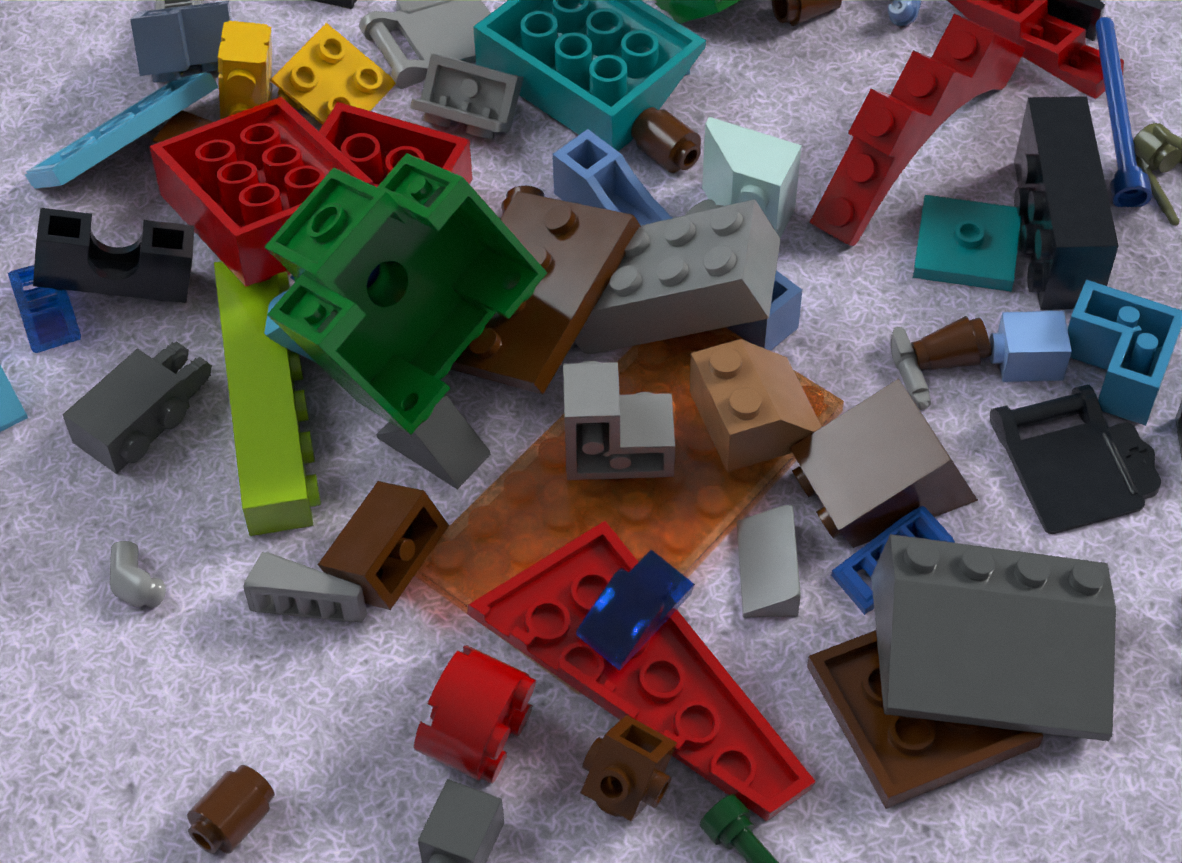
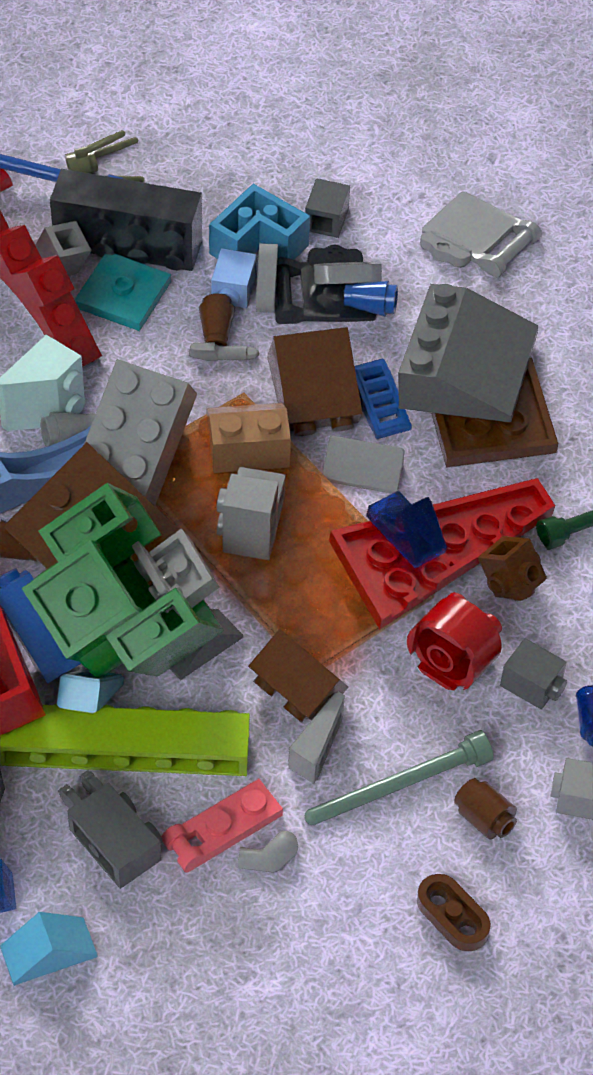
camera: 80 degrees left, 0 degrees up
(63, 798) = (455, 913): none -> reddish brown plate
(169, 522) = (222, 825): none -> coral plate
(324, 780) = (473, 750): none -> sand green piece
(455, 343) = (175, 565): none -> light grey bracket
(986, 154) = (66, 242): none -> light grey brick
(1046, 376) = (266, 277): none -> light grey beam
(1069, 512) = (372, 297): none -> blue cone
(1096, 468) = (347, 272): none -> light grey beam

